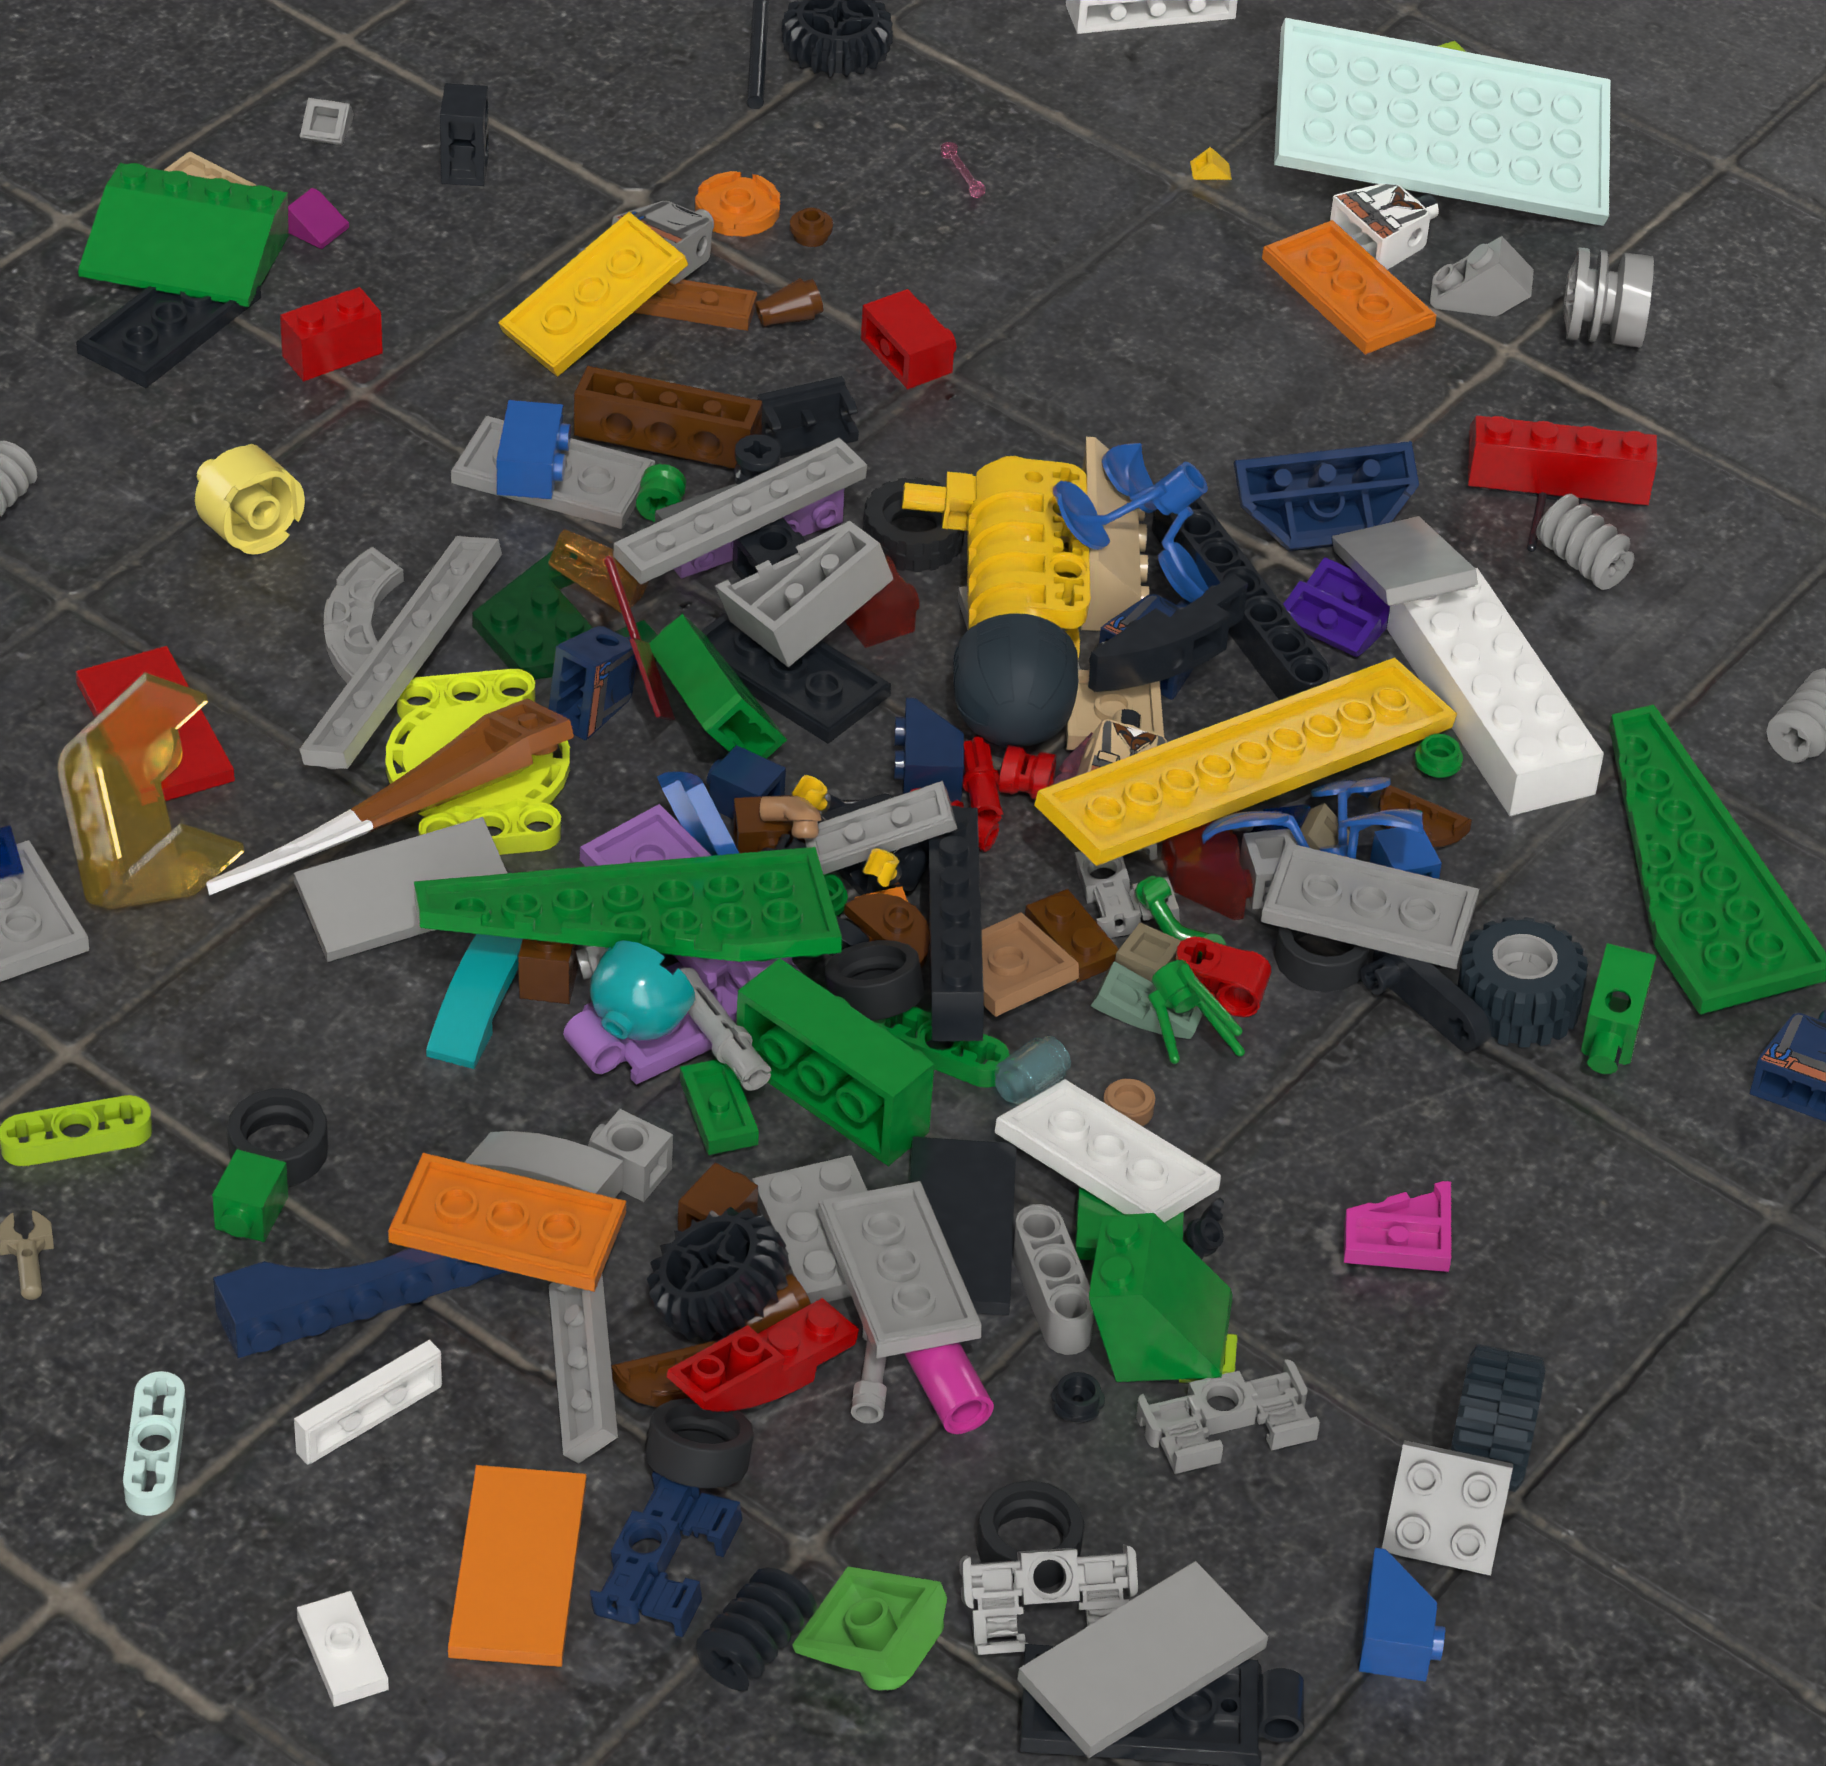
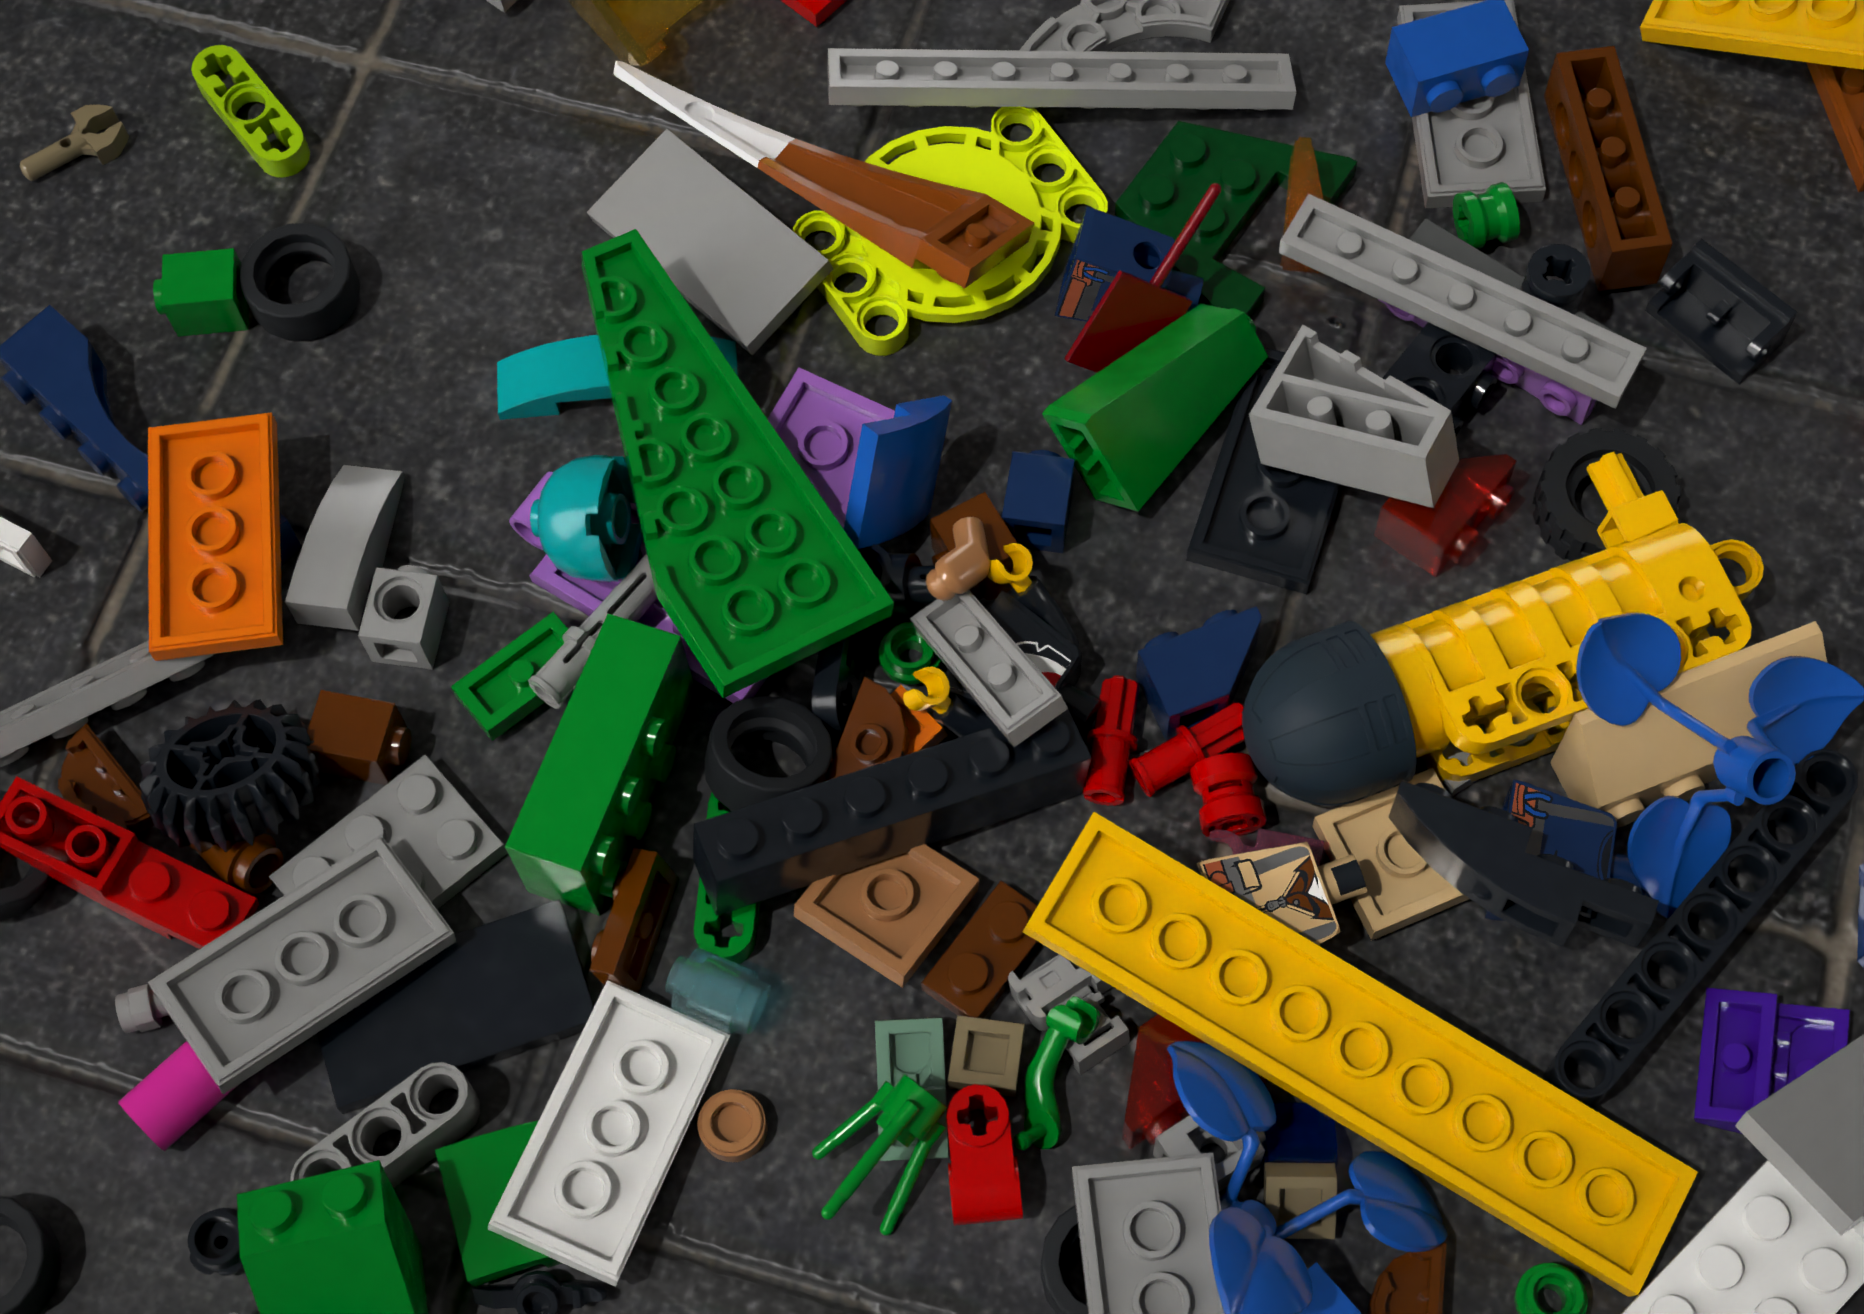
camera: 75 degrees right, 20 degrees up
(966, 1103) = (635, 921): none -> reddish brown plate

